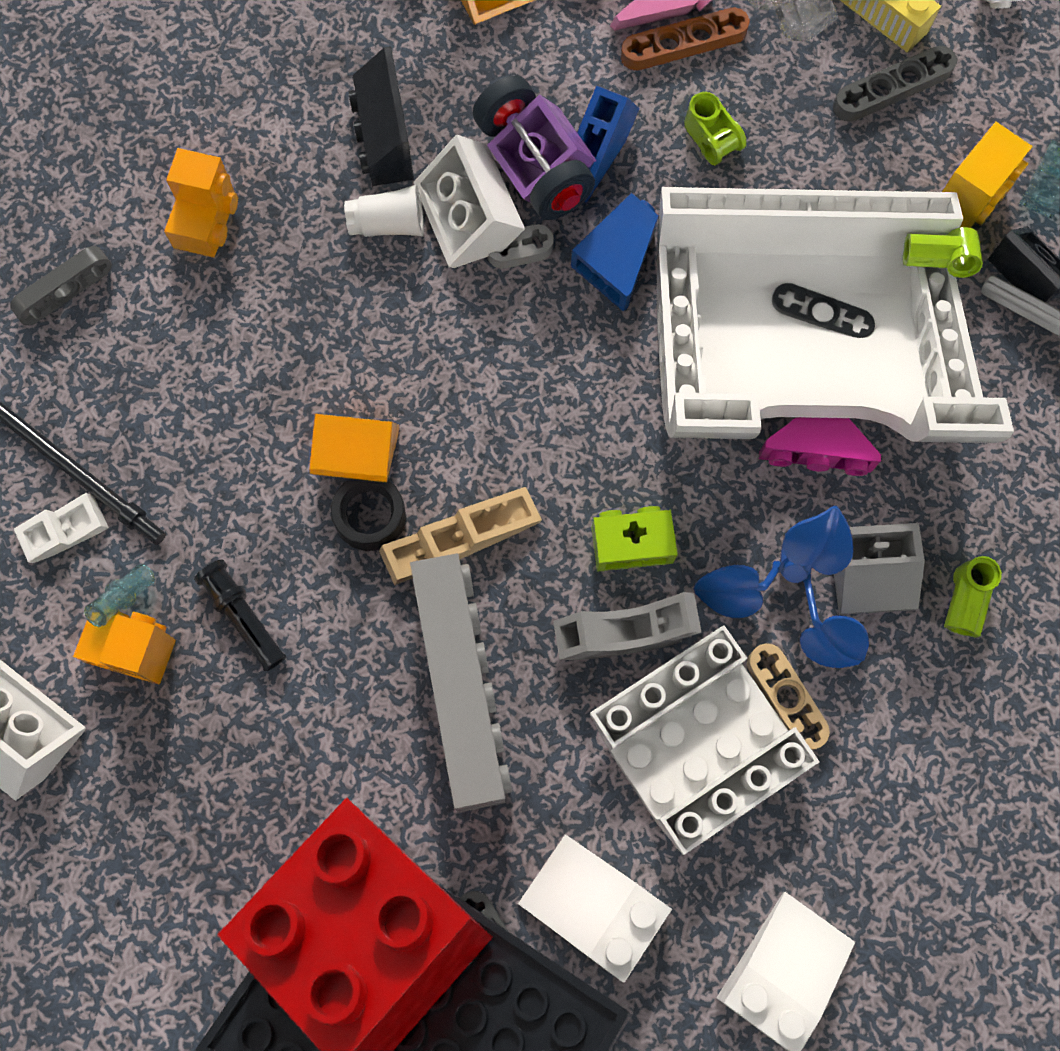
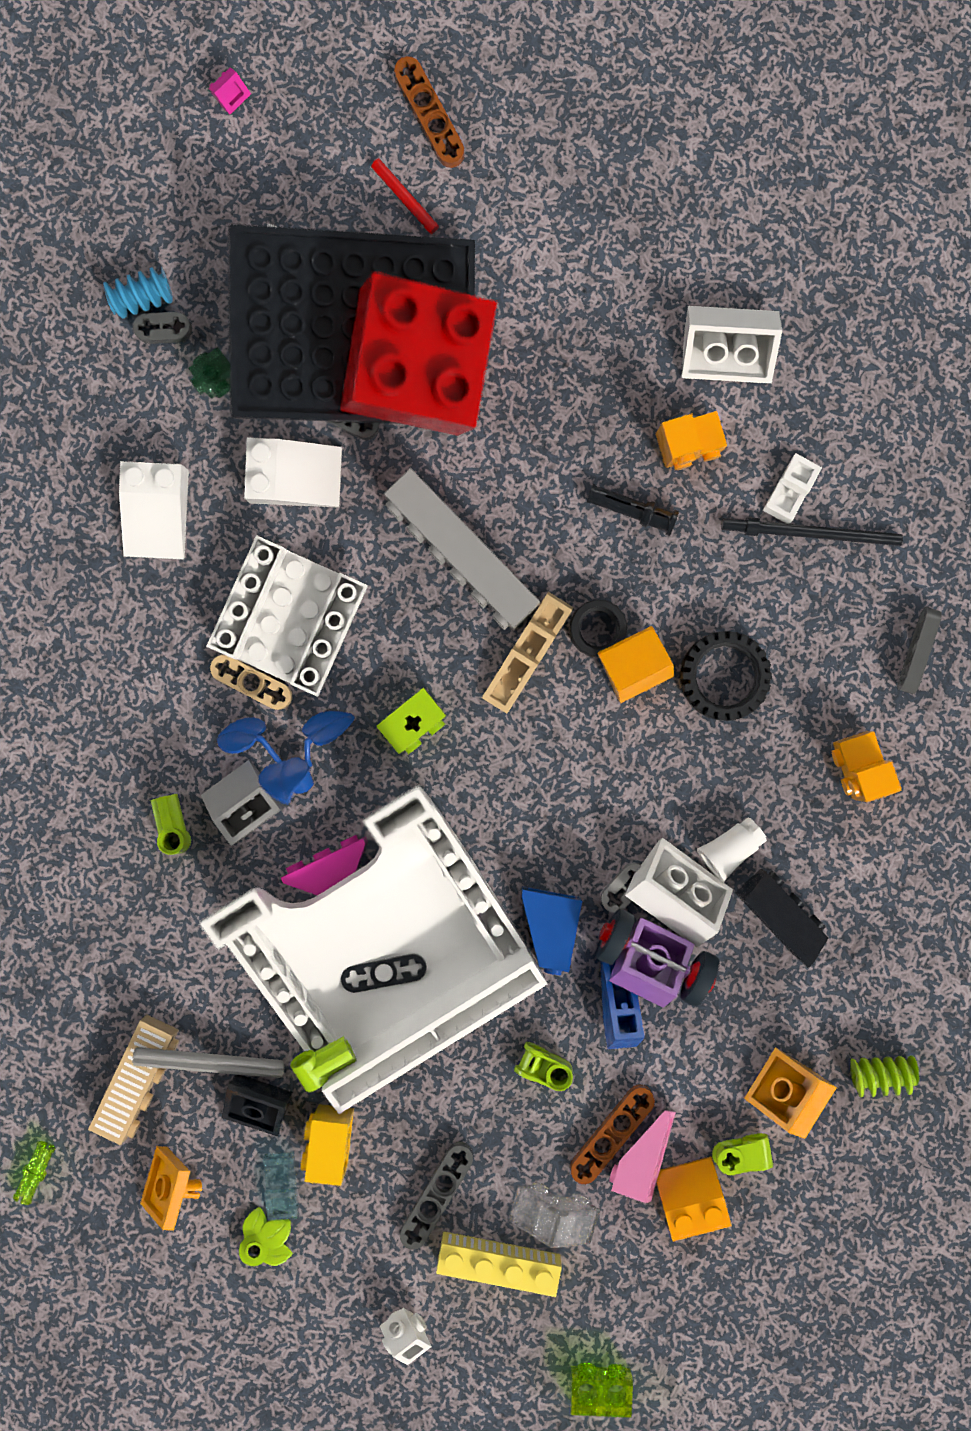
camera: 150 degrees right, 15 degrees up
(119, 595) = (716, 468): clear light blue pin -> none
(254, 344) = (761, 679): none -> black tyre
(628, 630) = (379, 656): light grey arch -> none

